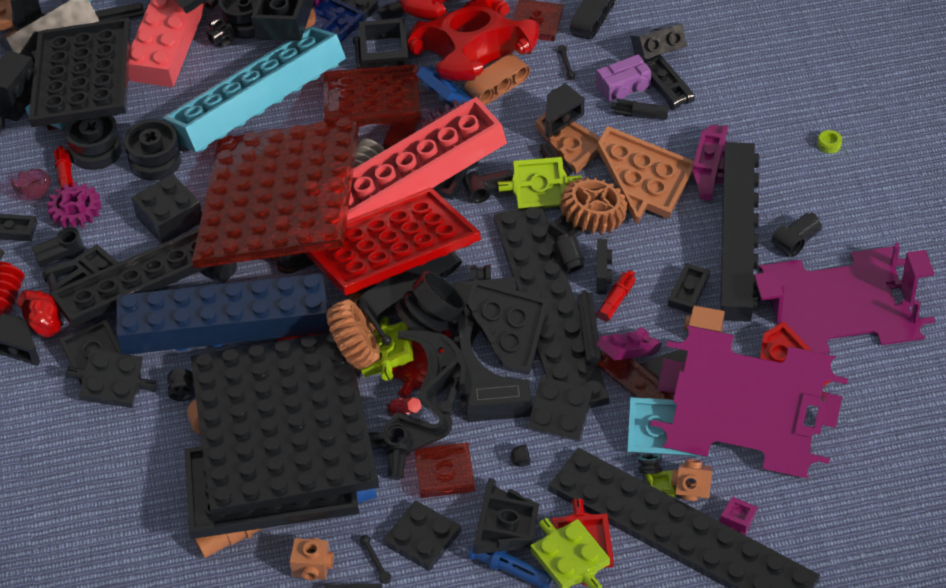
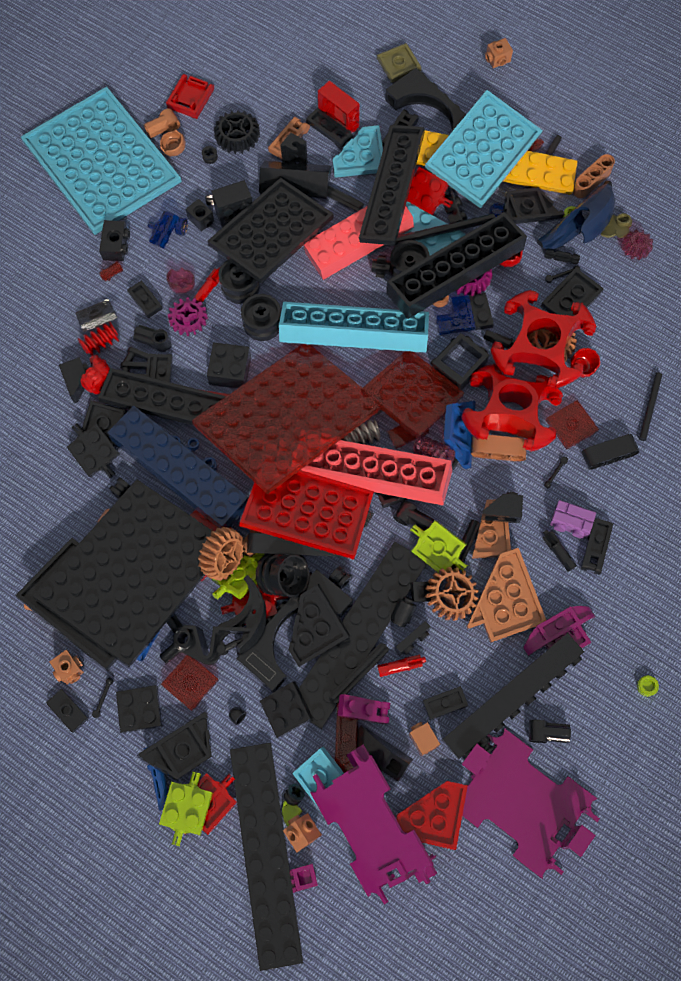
camera: 45 degrees right, 20 degrees up
(386, 340) = (245, 540): black hinge -> none
(403, 406) = (203, 624): red piece -> none
(658, 40) = (622, 513): black brick -> none

